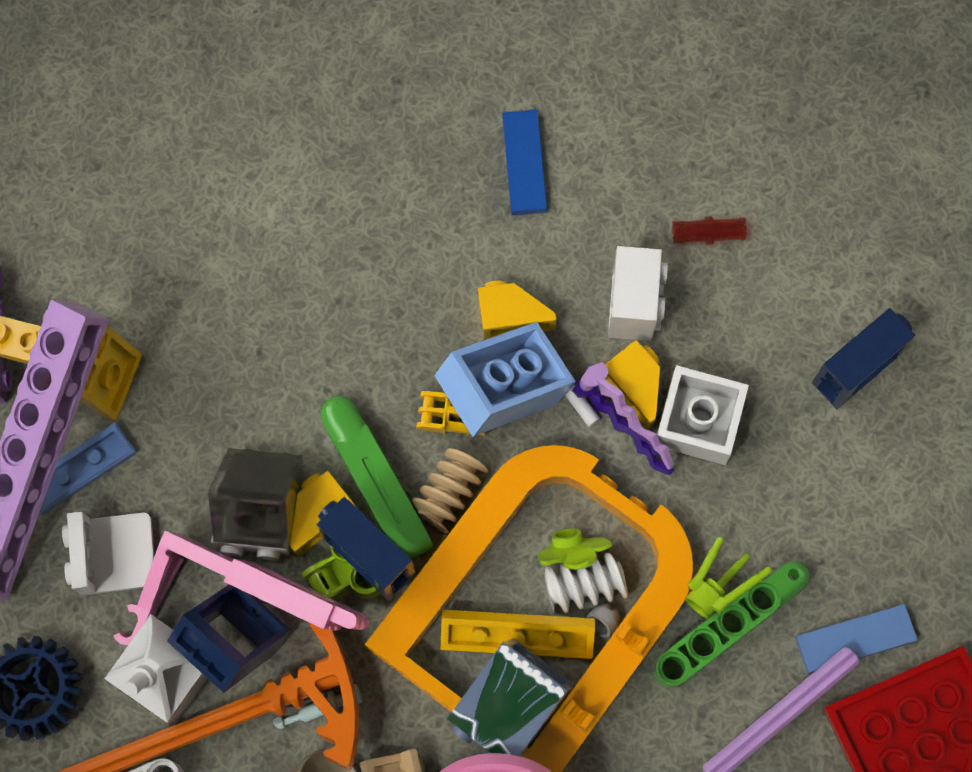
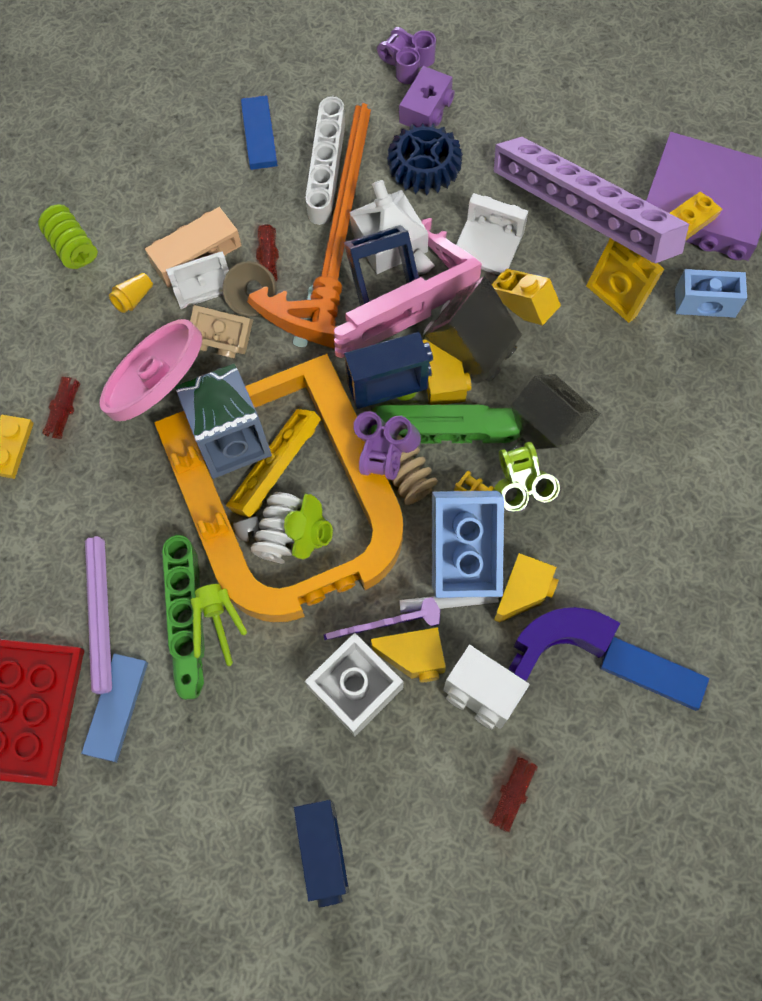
camera: 120 degrees right, 5 degrees down
(71, 273) = (710, 293): none -> light blue brick
(87, 465) = (562, 249): medium blue tile -> none
(170, 474) = (527, 295): none -> yellow slope
(176, 611) = (422, 262): none -> white hinge
(313, 368) = (551, 413): none -> clear smoke piece
(399, 364) = (523, 472): none -> lime piece
(452, 509) = (382, 449): none -> medium lavender piece
(537, 265) = (563, 626): none -> dark purple arch

